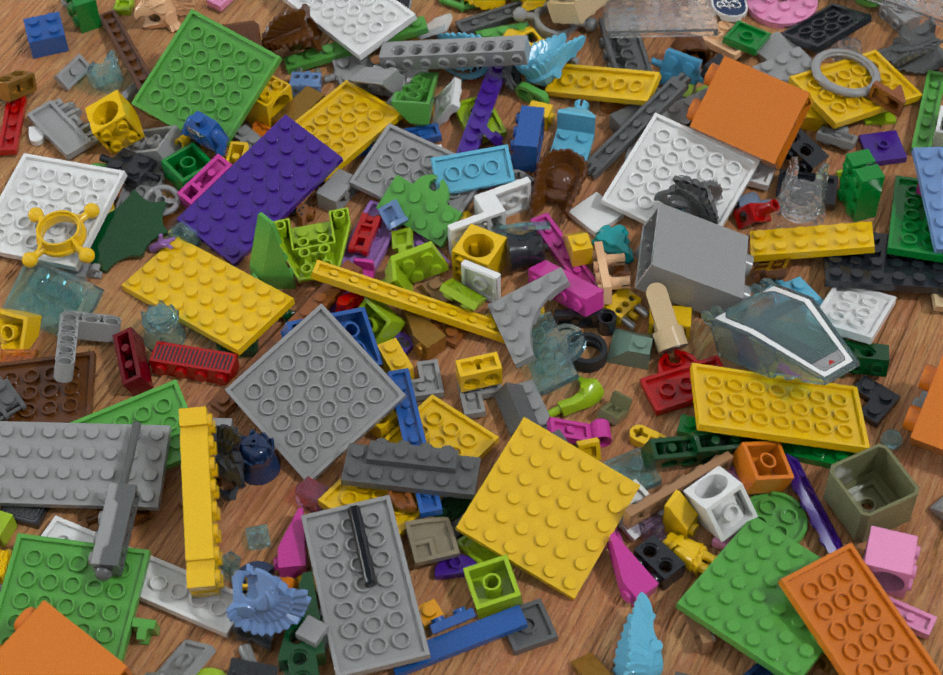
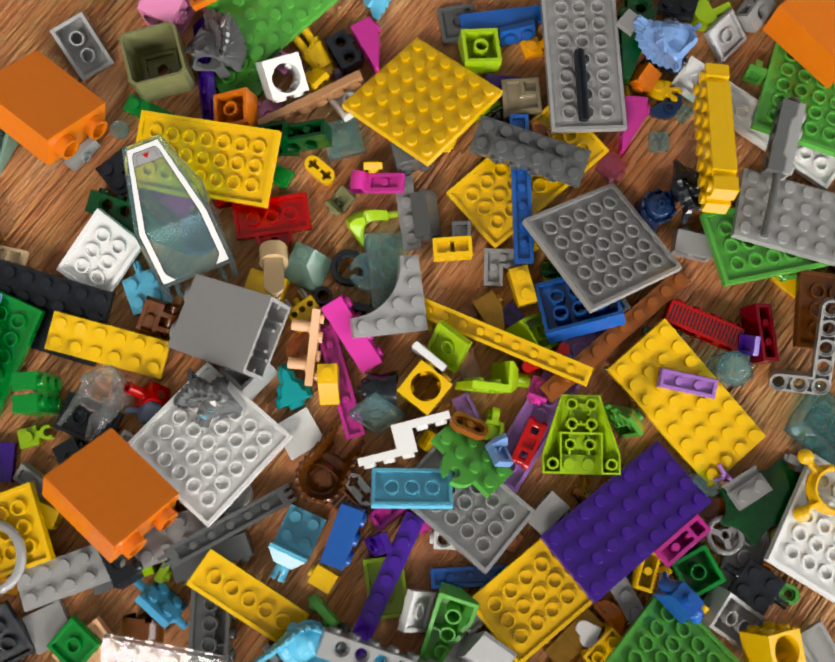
camera: 170 degrees left, 30 degrees up
(141, 234) = (747, 488): none -> light grey plate
(145, 341) = (749, 344): none -> dark purple plate
(209, 299) = (687, 383): none -> medium lavender tile
(287, 107) = (587, 632): none -> white tile
(428, 229) = (468, 425): none -> dark orange plate
(806, 517) = (218, 40): none -> dark grey piece

